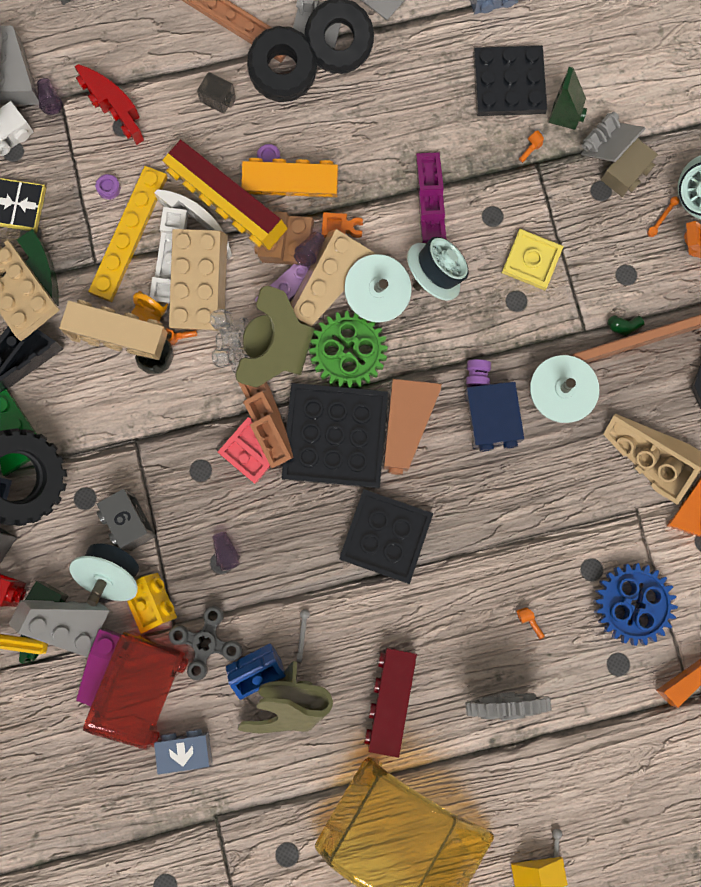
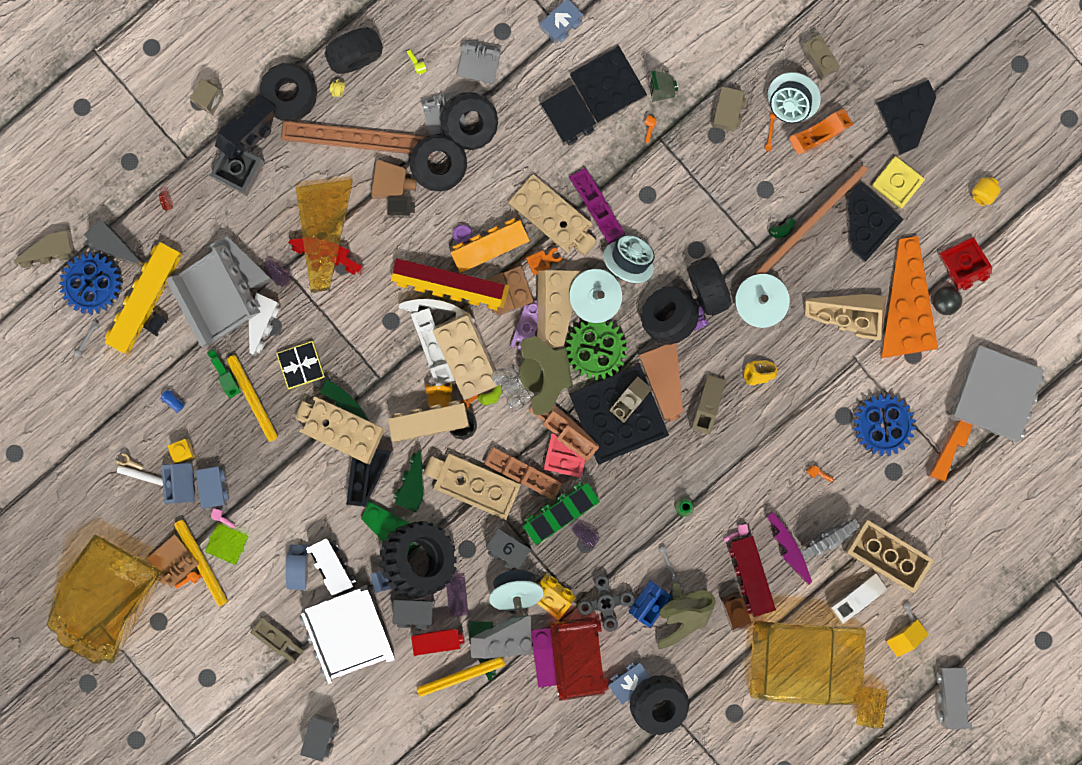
camera: 20 degrees left, 5 degrees up
(42, 546) = (457, 597): none -> clear purple hinge
(62, 396) = (412, 490): none -> dark green slope
(108, 186) = (358, 317): medium lavender tile -> none
(120, 65) = (322, 223): none -> clear yellow wing
(127, 234) = (392, 344): yellow plate -> none
(137, 436) = (480, 486): none -> tan hinge
(192, 445) = (522, 473): none -> nougat slope
(195, 818) = (667, 717): none -> black tyre
(202, 344) = (490, 398): none -> lime arm
(207, 511) = (562, 513): none -> brick
(222, 59) = (390, 181): none -> medium nougat torso
(309, 249) = (532, 293): cone -> none
(351, 733) = (736, 611): none -> reddish brown torso
(355, 586) = (678, 507): none -> green cone
(356, 422) = (630, 399): none -> dark tan slope
(373, 175) = (546, 212): none -> tan hinge
(386, 536) = (691, 466): black plate -> none
(408, 641) = (742, 530): none -> bright pink hand
(442, 476) = (708, 405): none -> dark tan slope
(450, 88) = (569, 115): none -> black panel
(450, 351) = (679, 325): none -> black tyre
(452, 700) = (792, 554): none -> magenta slope
(494, 416) = (723, 343): dark blue panel -> none
(502, 795) = (858, 598): none -> white slope
(513, 341) = (709, 286): none -> black tyre
(520, 469) = (759, 372): none -> yellow rock
(532, 259) = (692, 213): light yellow tile -> none
(567, 764) = (889, 556): none -> tan brick
(610, 138) = (705, 96): light grey hinge -> none

